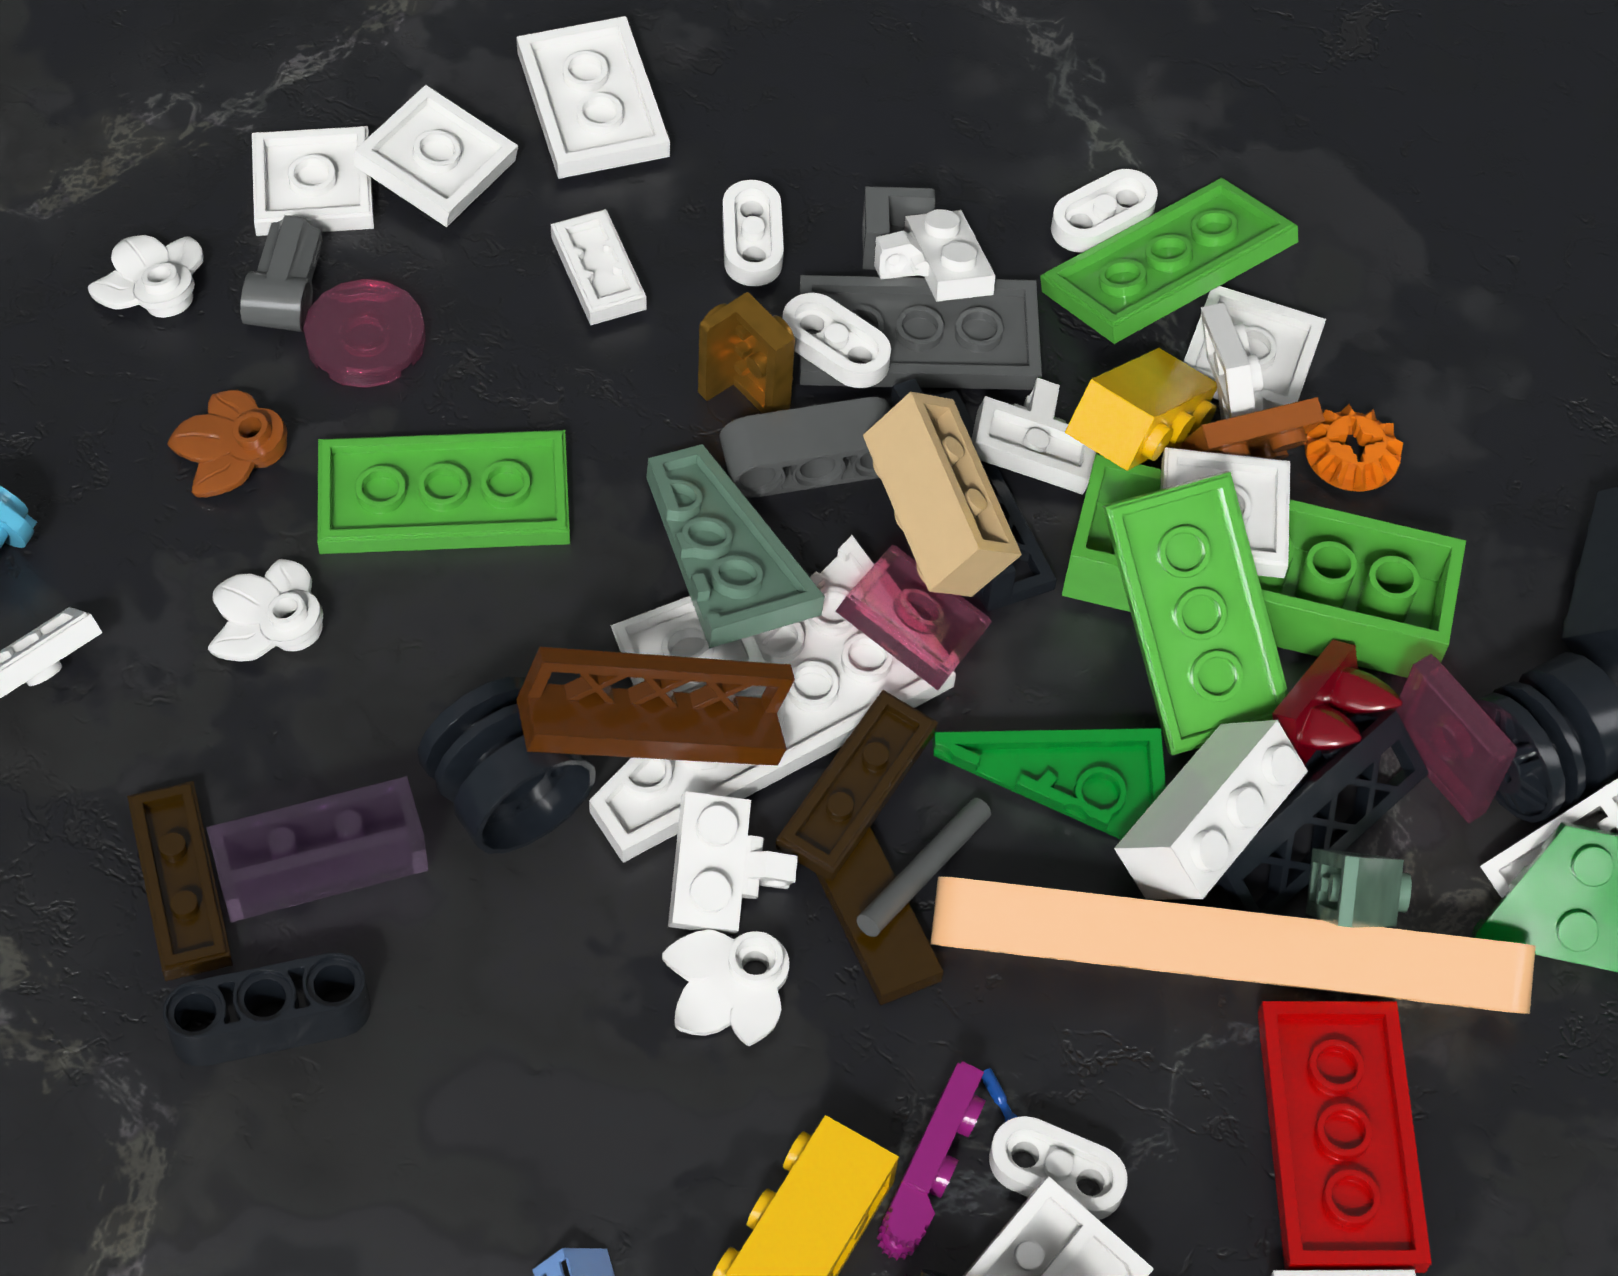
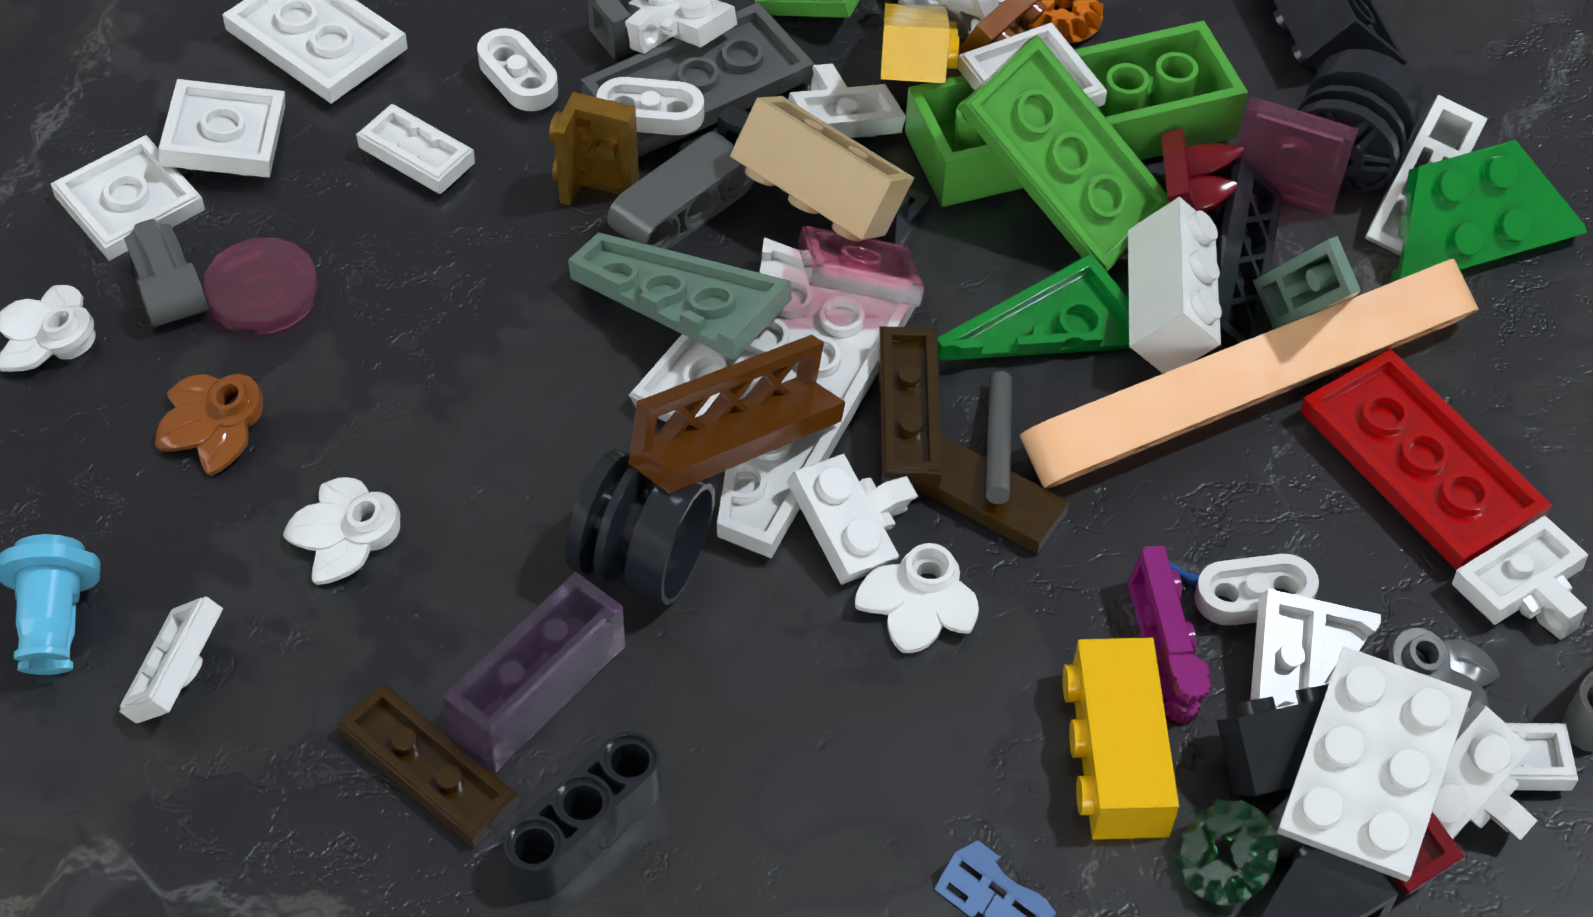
camera: 30 degrees left, 5 degrees down
(442, 492) = (415, 369): bright green tile -> none

